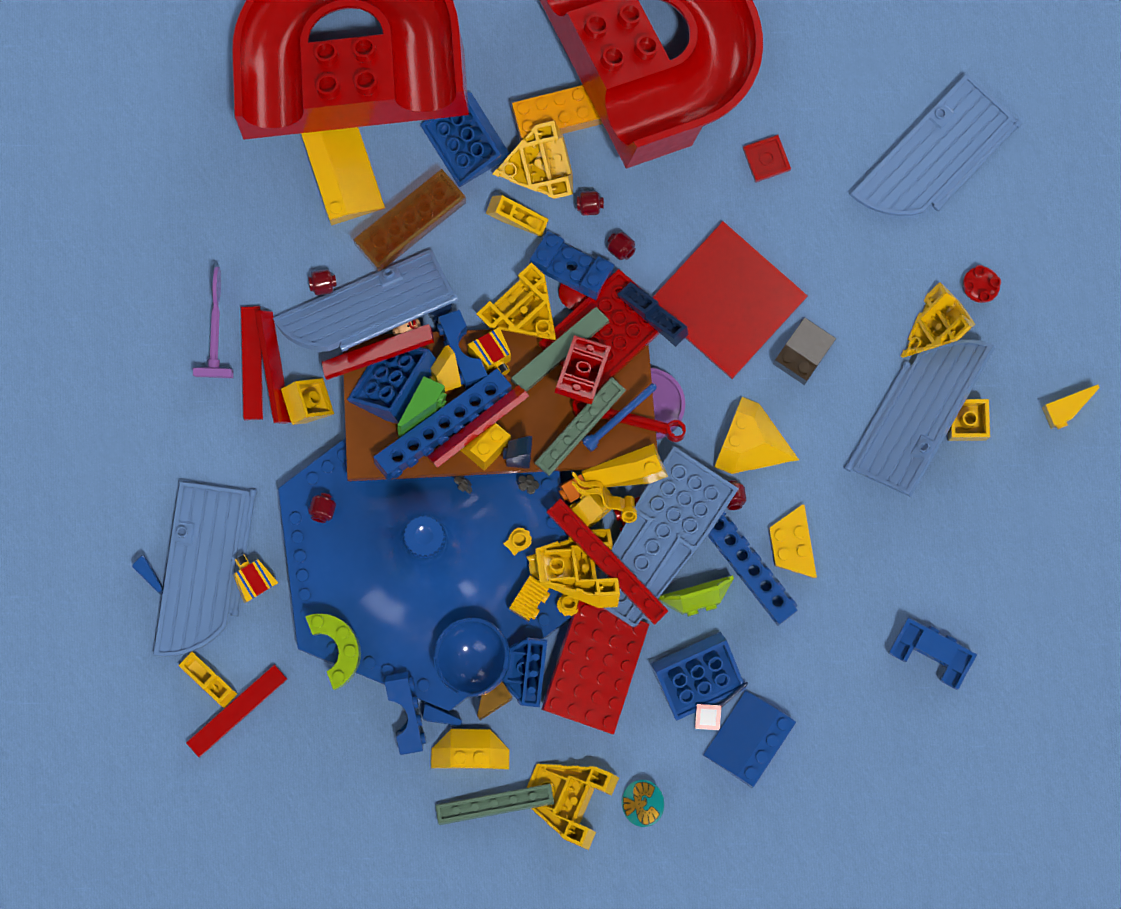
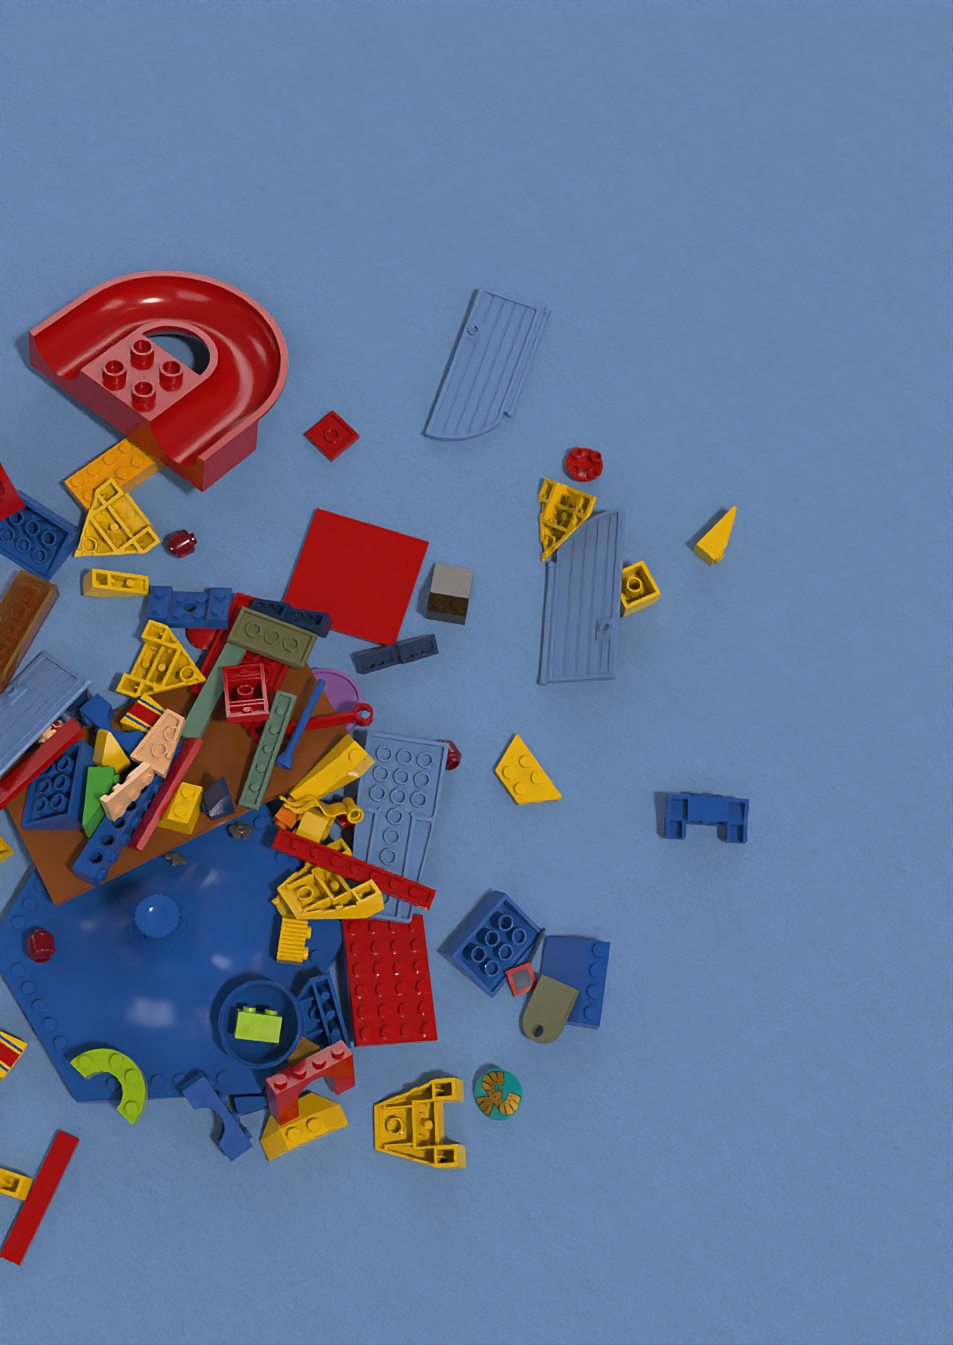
camera: 30 degrees left, 10 degrees down
(441, 413) = (124, 794): none -> light nougat wing
(469, 656) = (258, 1025): none -> lime piece
(469, 717) = (284, 1088): none -> red arch
(492, 380) = (160, 743): none -> light nougat wing
(494, 804) = (350, 1167): sand green tile -> none
(518, 540) = (256, 889): yellow animal -> none
(567, 605) = (333, 930): yellow animal -> none
(621, 246) = (230, 570): dark red head -> none
(629, 327) = (272, 638): none -> olive tile
(697, 597) = (458, 866): lime wedge -> none
(718, 752) = (548, 1008): none -> olive tile
(731, 385) = (395, 654): none -> dark blue slope
(752, 441) = (441, 698): yellow wedge -> none
(778, 614) = (522, 839): blue brick -> none

